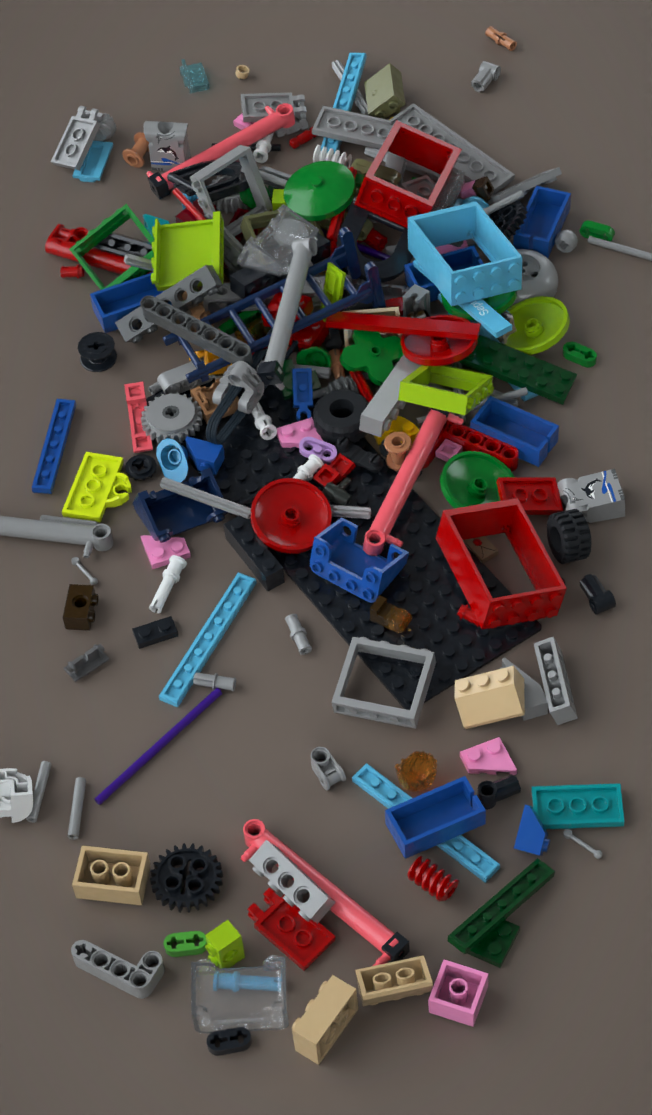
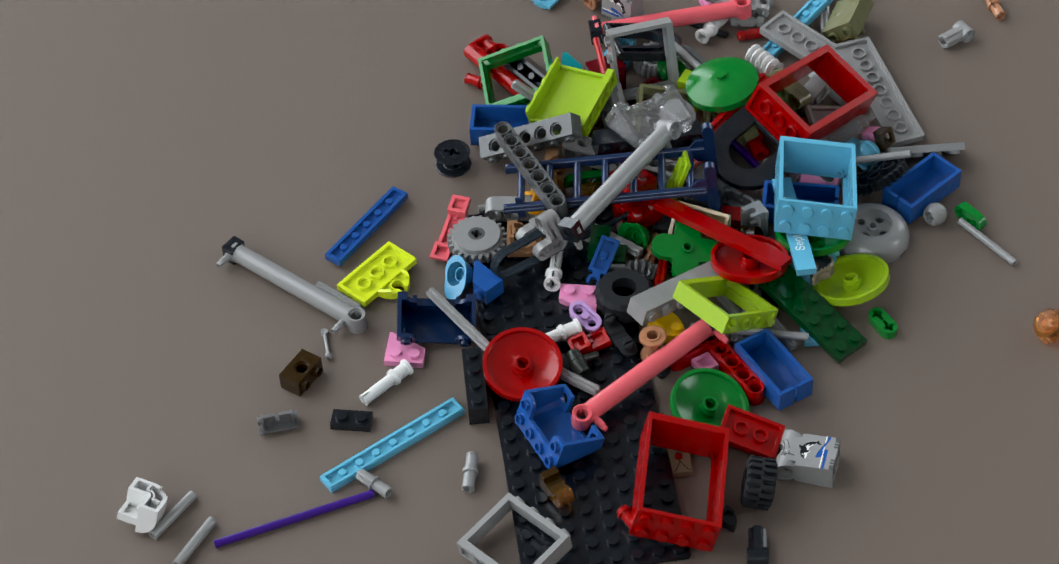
camera: 25 degrees right, 5 degrees down
(137, 462) = (428, 267): black gear -> none

